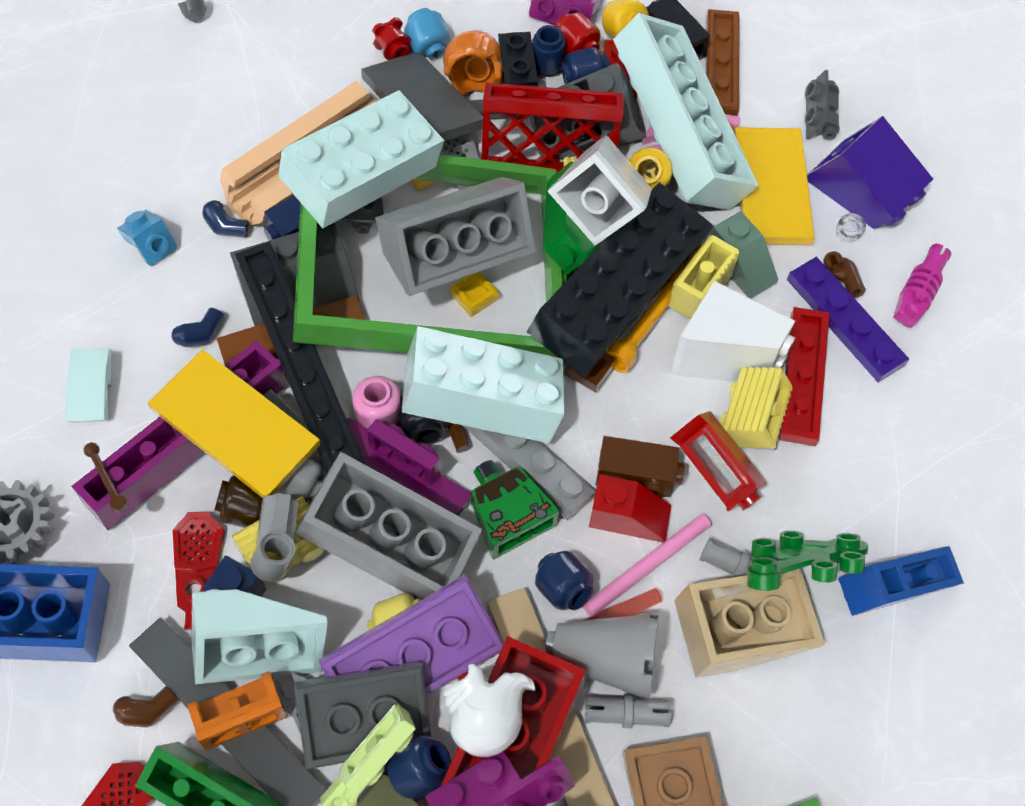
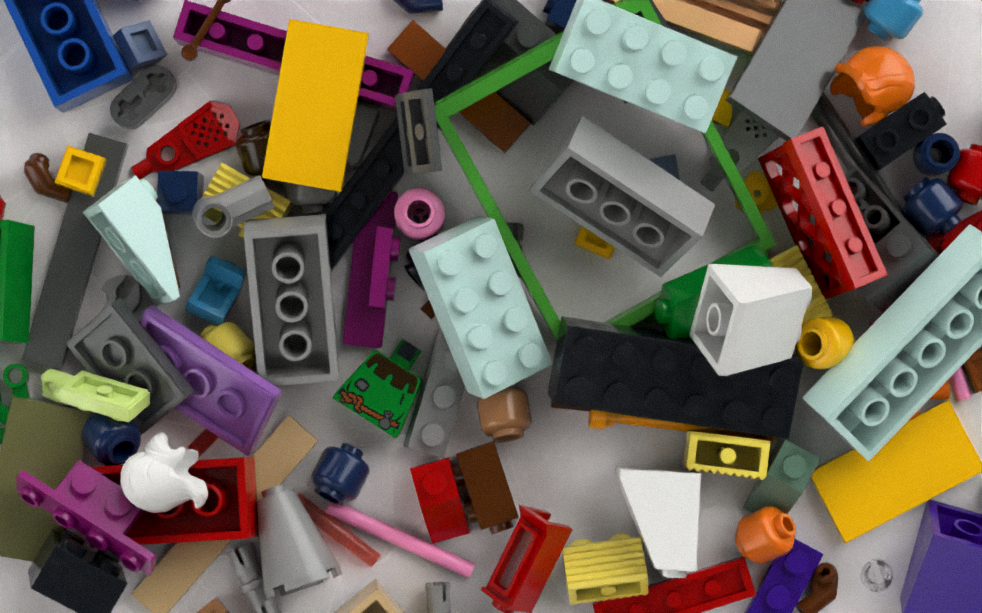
camera: 65 degrees right, 25 degrees up
(85, 555) = (139, 45): none -> sand blue plate
(122, 584) = (136, 90): none -> dark grey beam
(157, 667) = (80, 171): none -> yellow tile
(237, 712) = (79, 260): orange hinge -> none
(310, 341) = (418, 132): none -> dark grey slope
(339, 601) = (216, 291): none -> dark azure bracket
(583, 423) = (505, 414): none -> medium nougat head
(782, 282) = (765, 535): none -> orange head

